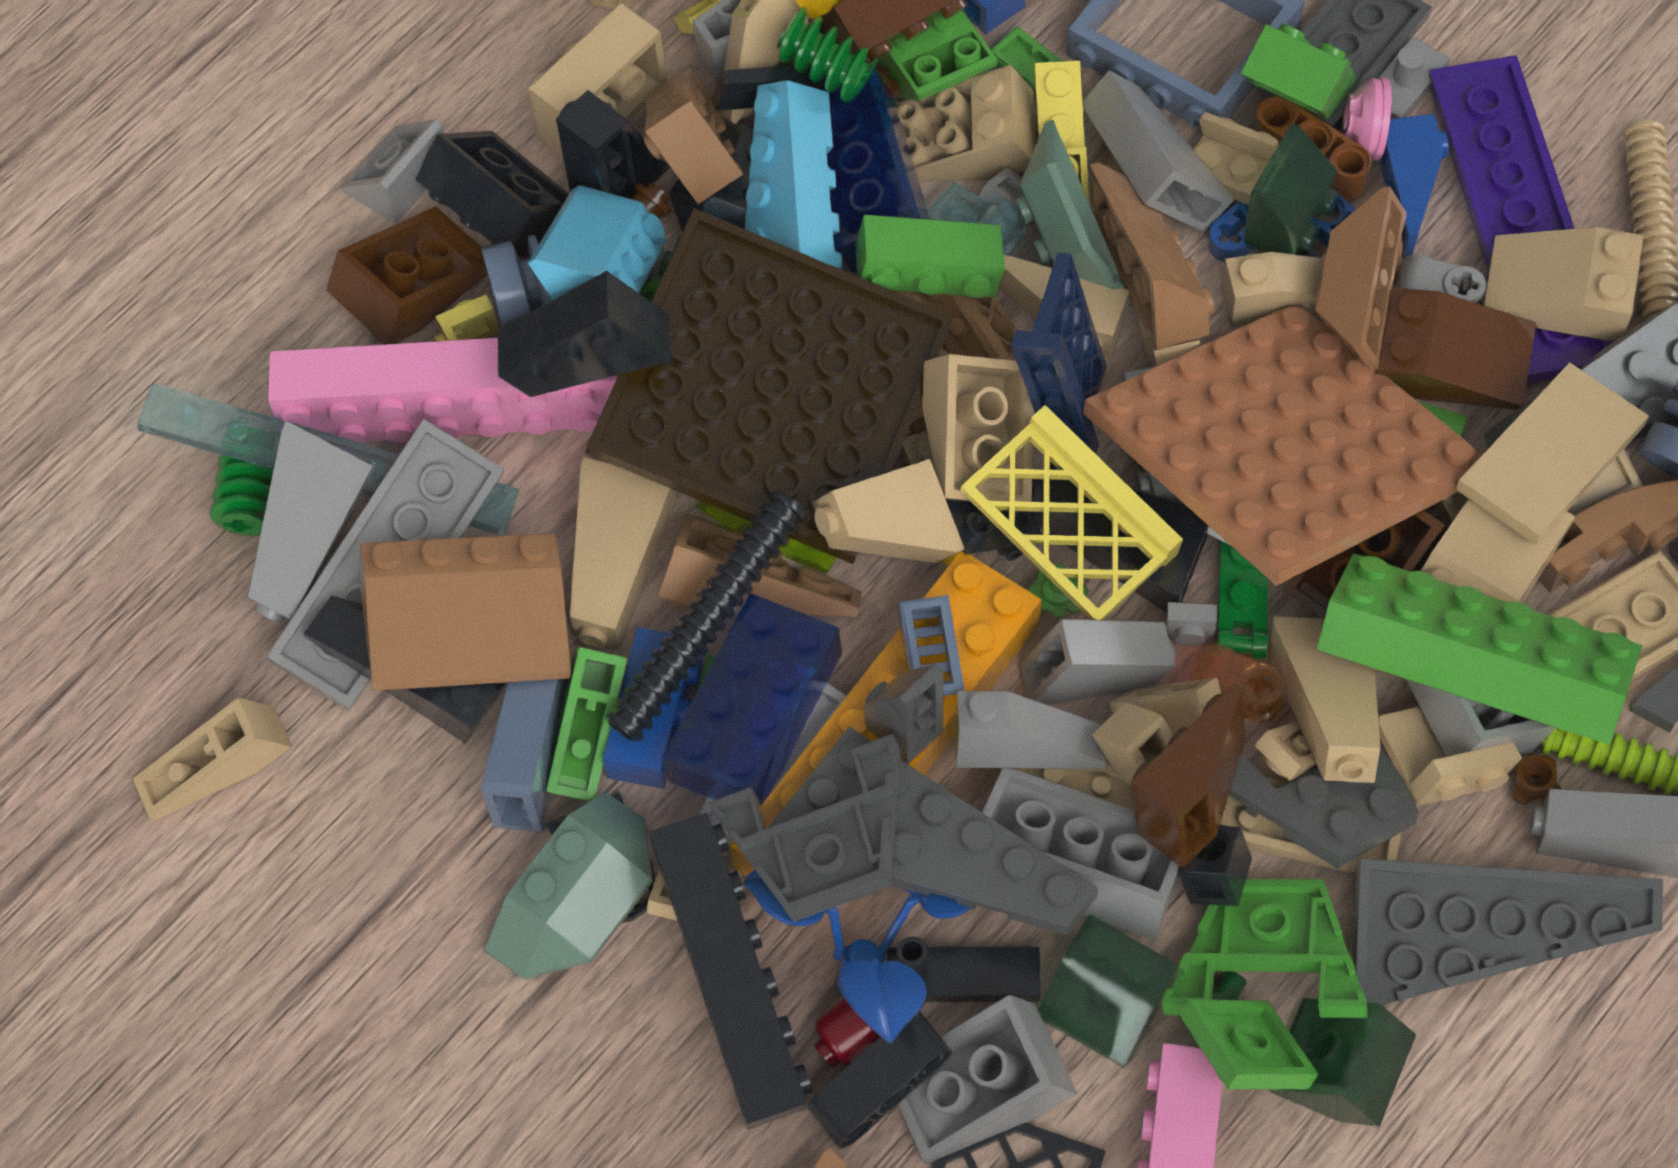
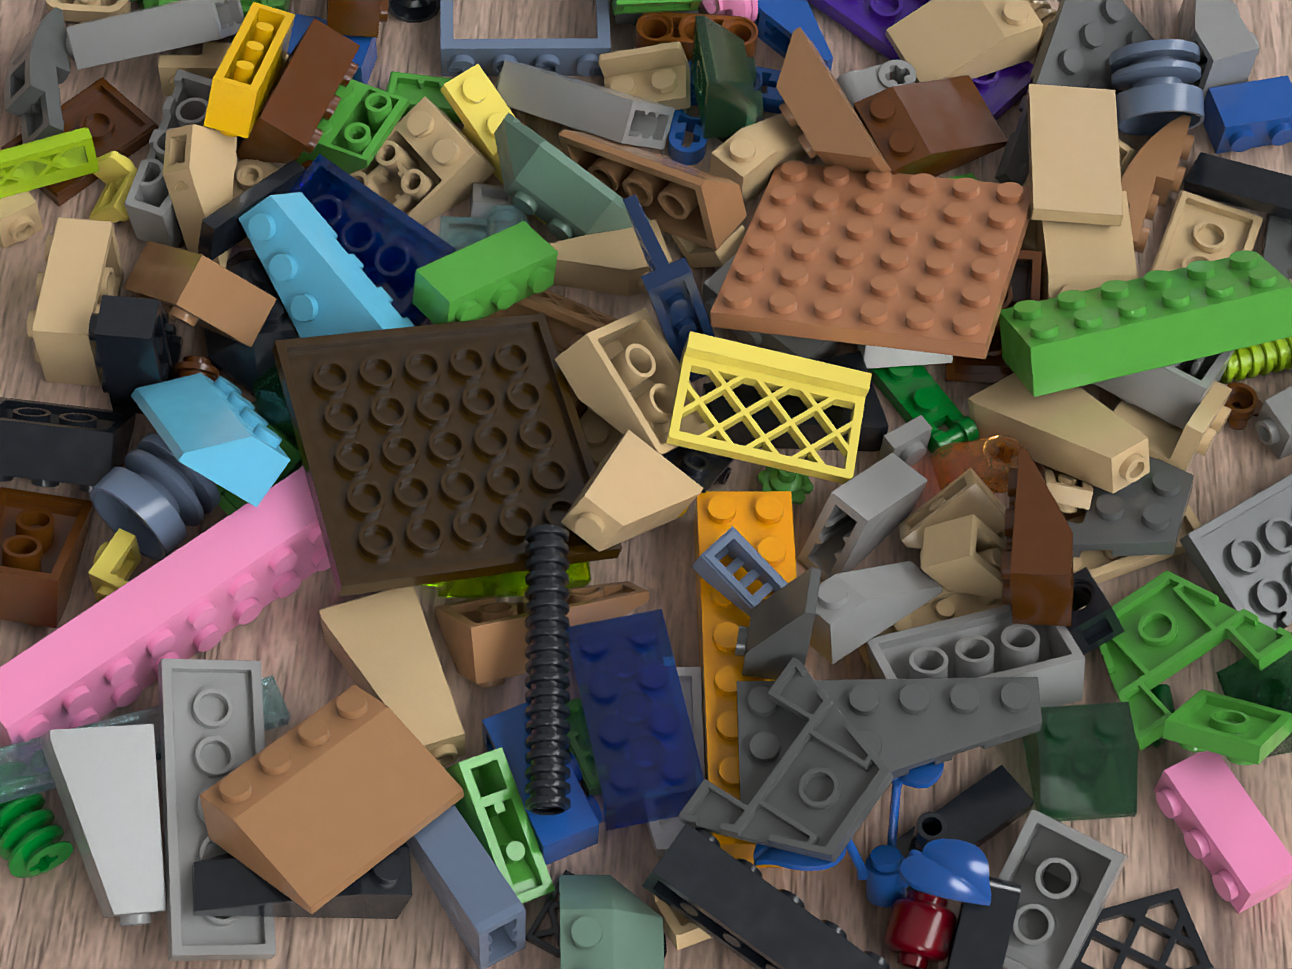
camera: 45 degrees left, 5 degrees down
(583, 338) = (271, 498): black wedge -> none
(825, 56) = (280, 159): green piece -> none

